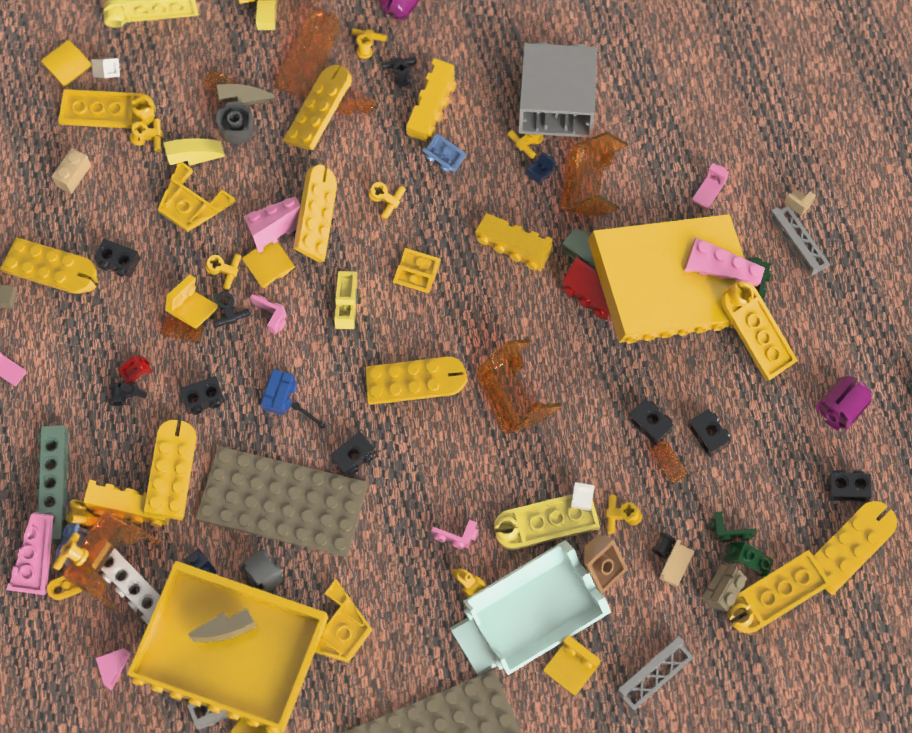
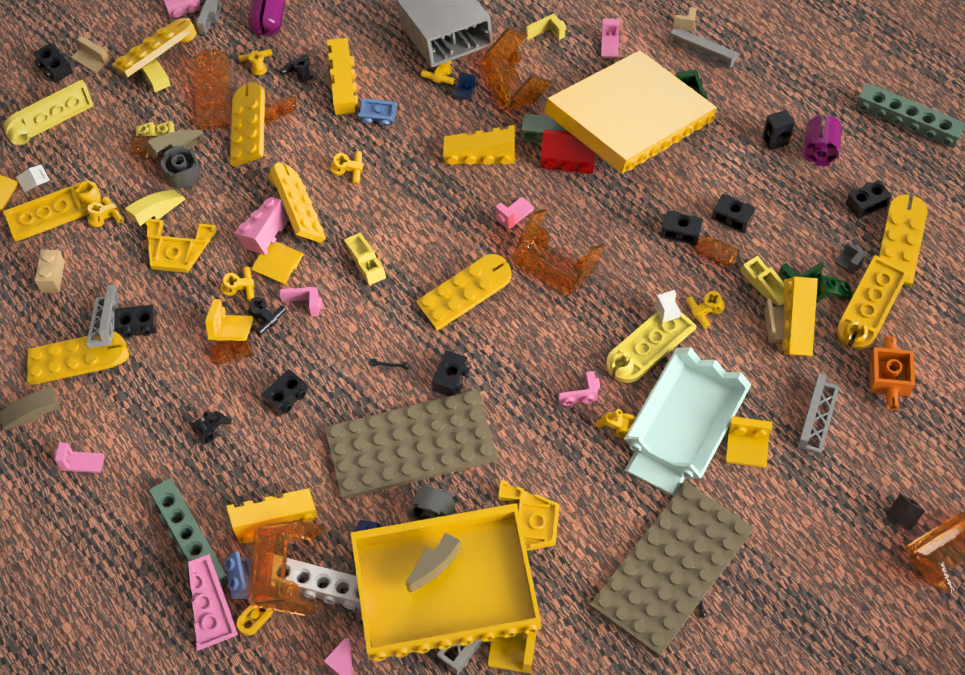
camera: 30 degrees left, 10 degrees down
(71, 551) = (246, 573): yellow piece -> none
(79, 514) = (228, 545): yellow piece -> none
(89, 247) = (107, 320): none -> light grey fence
(134, 368) = (207, 401): red bracket -> none
(170, 471) = (296, 465): yellow plate -> none
(239, 73) = (150, 129): none -> light yellow slope
(278, 392) = (352, 358): blue brick -> none
(417, 270) = (411, 208): yellow slope -> none
(505, 324) = (513, 214): none -> bright pink bracket
(603, 562) = (718, 346): medium nougat slope -> none
(657, 137) = (547, 23): none -> light yellow bracket
(663, 545) = (756, 313): black bush -> none
(694, 519) = (764, 280): none -> light yellow slope
(696, 571) = (799, 316): none -> yellow wedge
(718, 262) = (656, 83): bright pink wing -> none
(724, 588) = (829, 319): dark tan brick -> none
(744, 684) = (891, 372): none -> orange brick
(757, 329) = (720, 117): yellow plate -> none
(790, 538) = (851, 258): none -> dark grey panel
(808, 369) = (778, 129): none -> black brick

